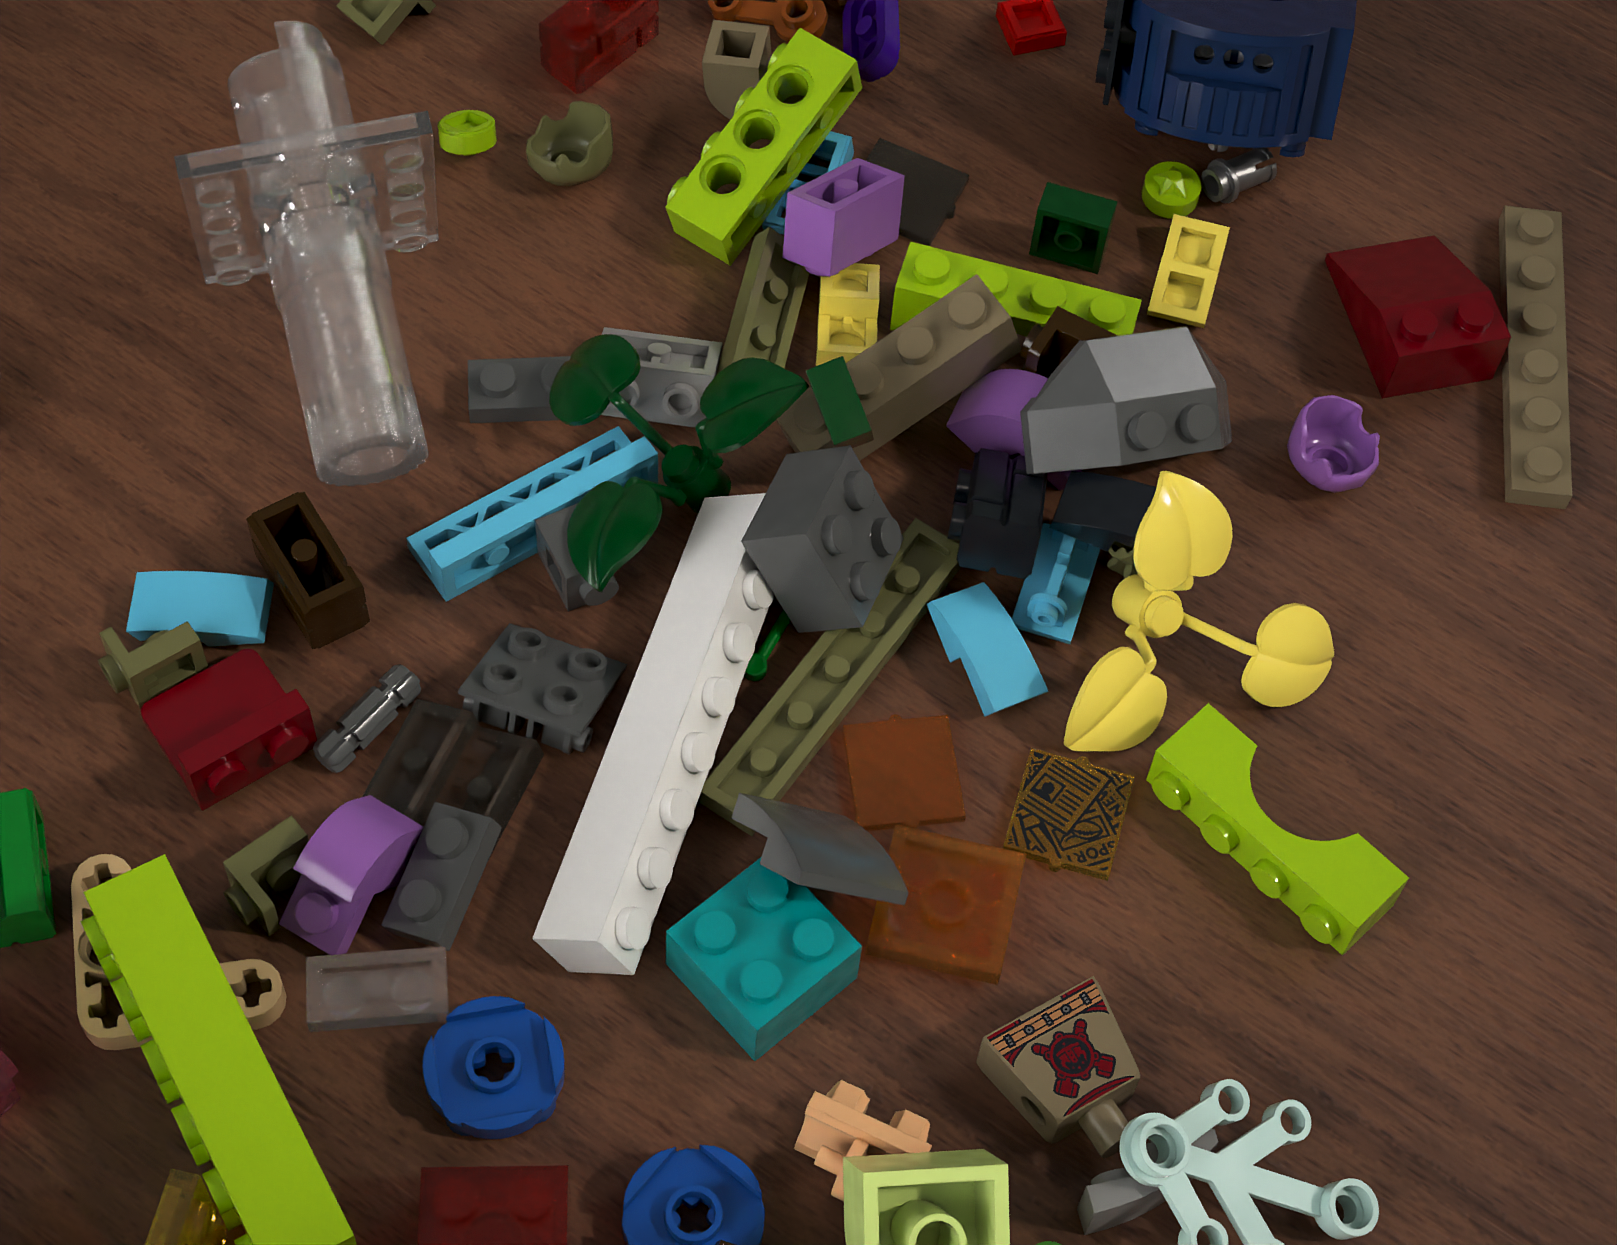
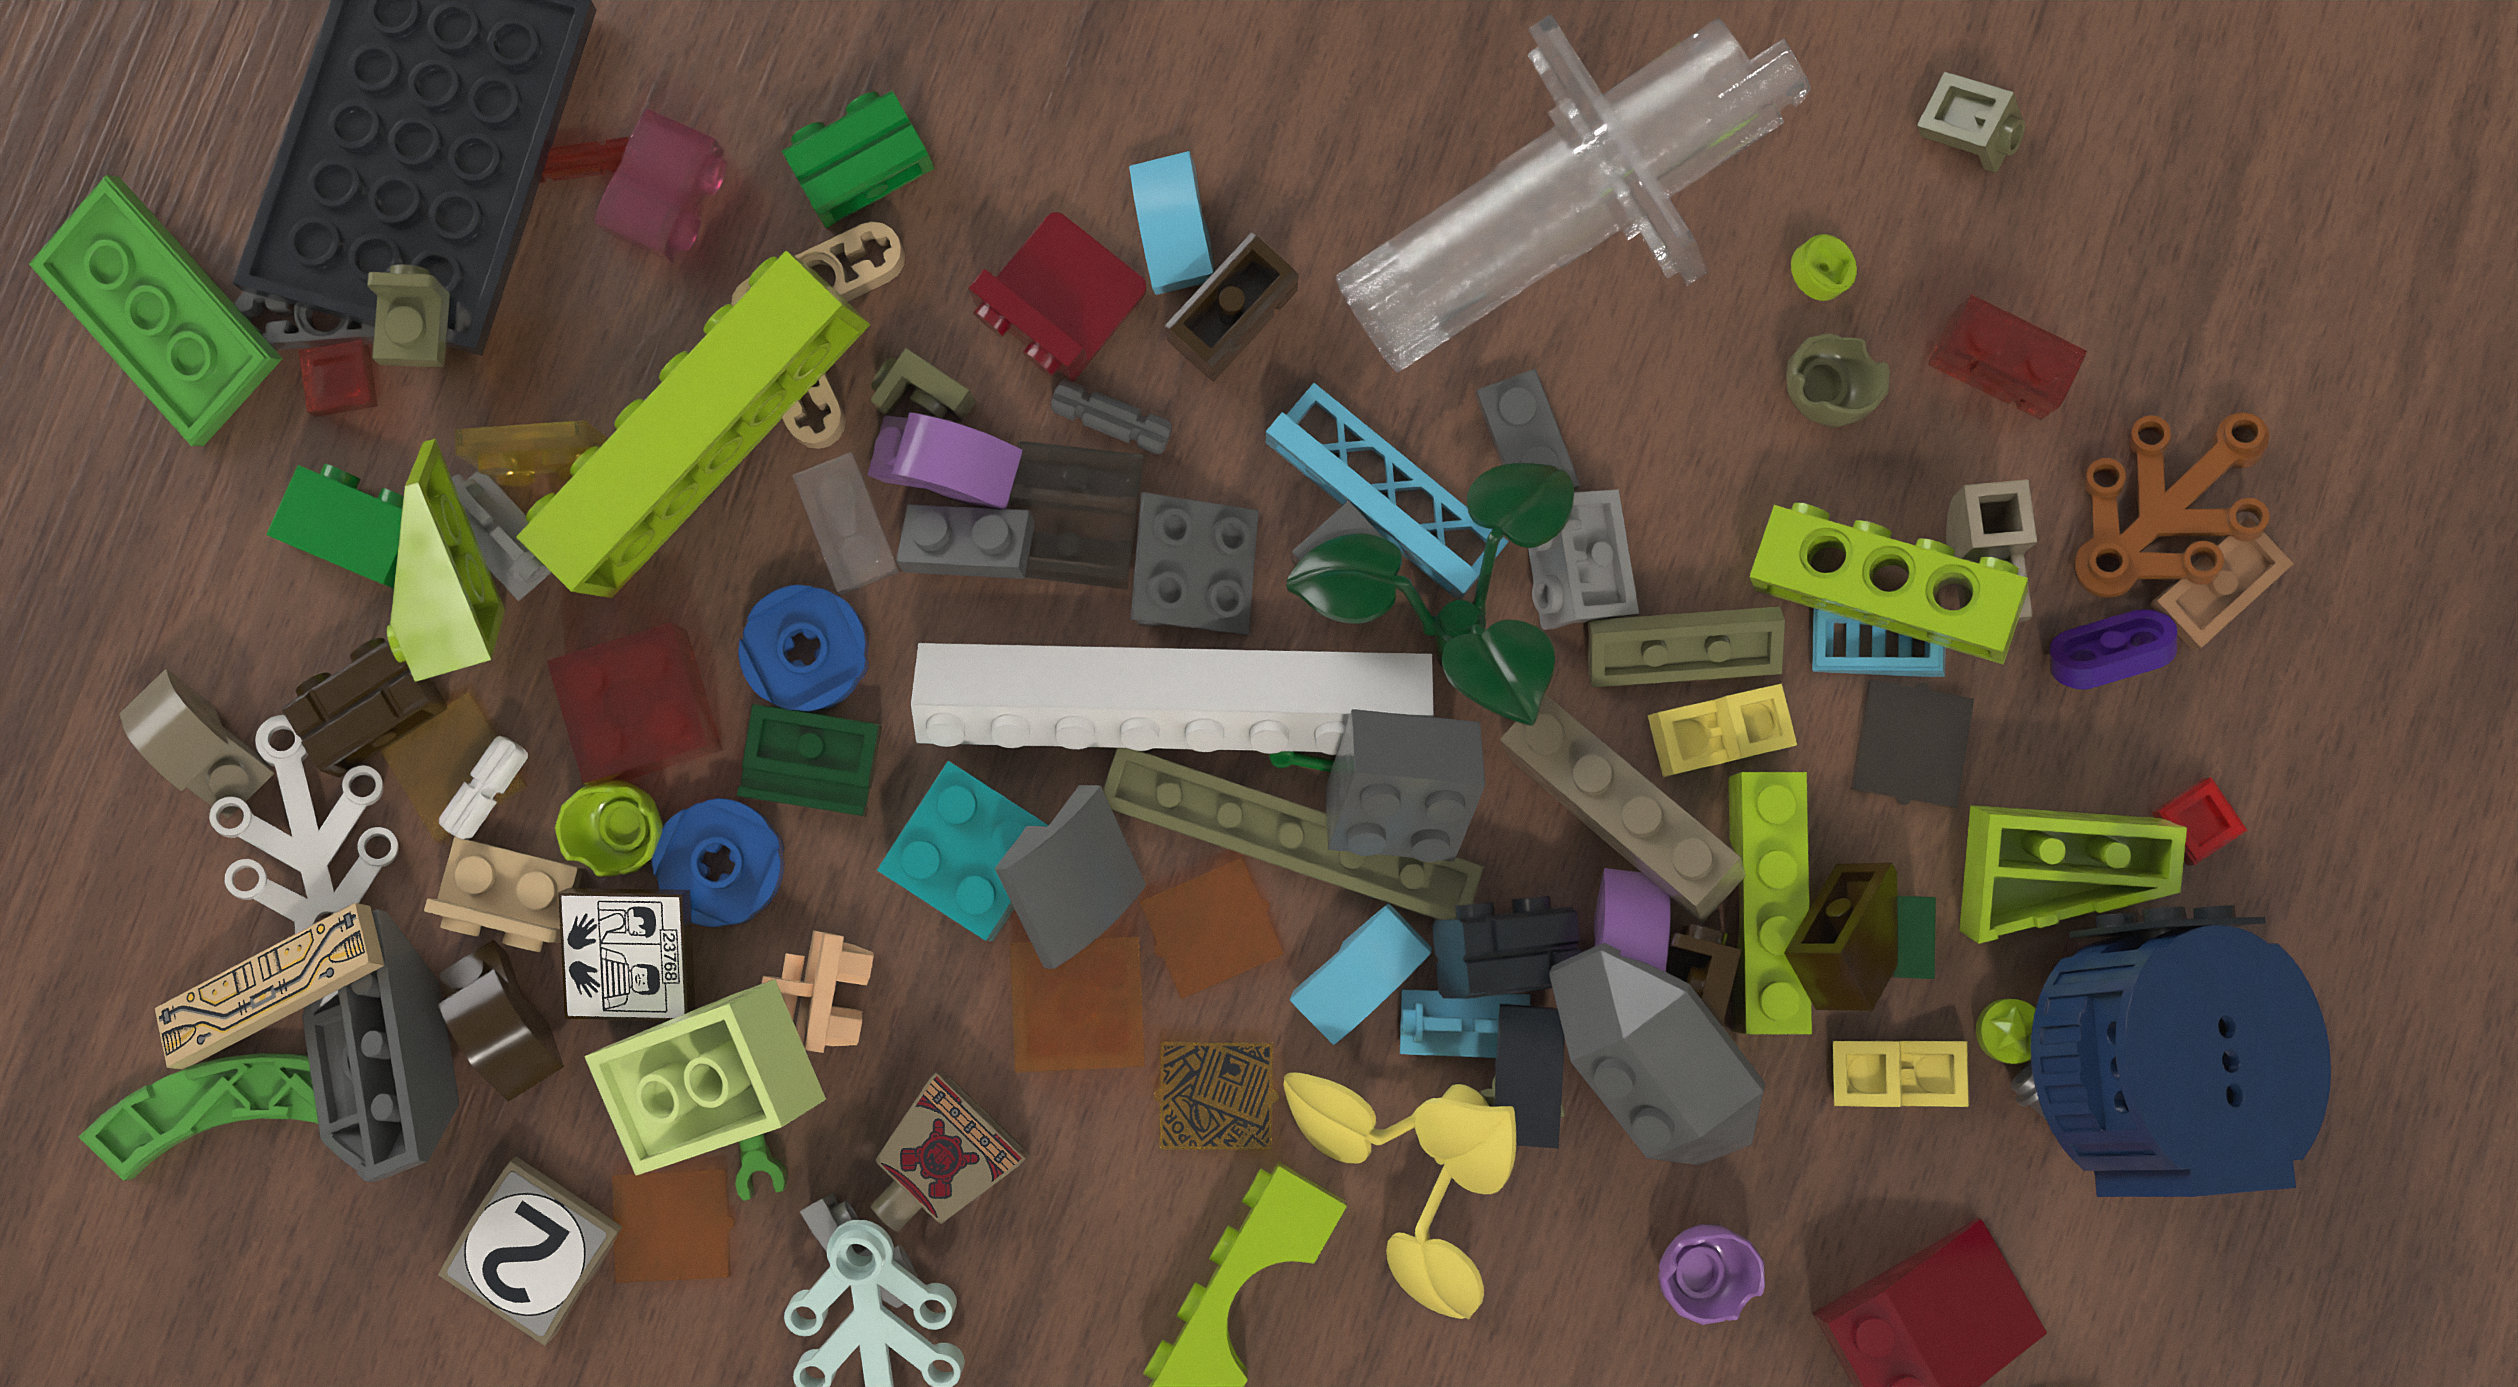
camera: 80 degrees right, 25 degrees up
(156, 665) = (1105, 212): olive bracket -> none
(614, 1094) = (809, 760): none -> dark green plate
(840, 403) = (1536, 760): dark green piece -> none
(842, 217) = (1823, 692): medium lavender brick -> none
(1044, 108) = (2058, 865): none -> lime wedge
(1065, 247) = (1849, 938): none -> dark brown slope

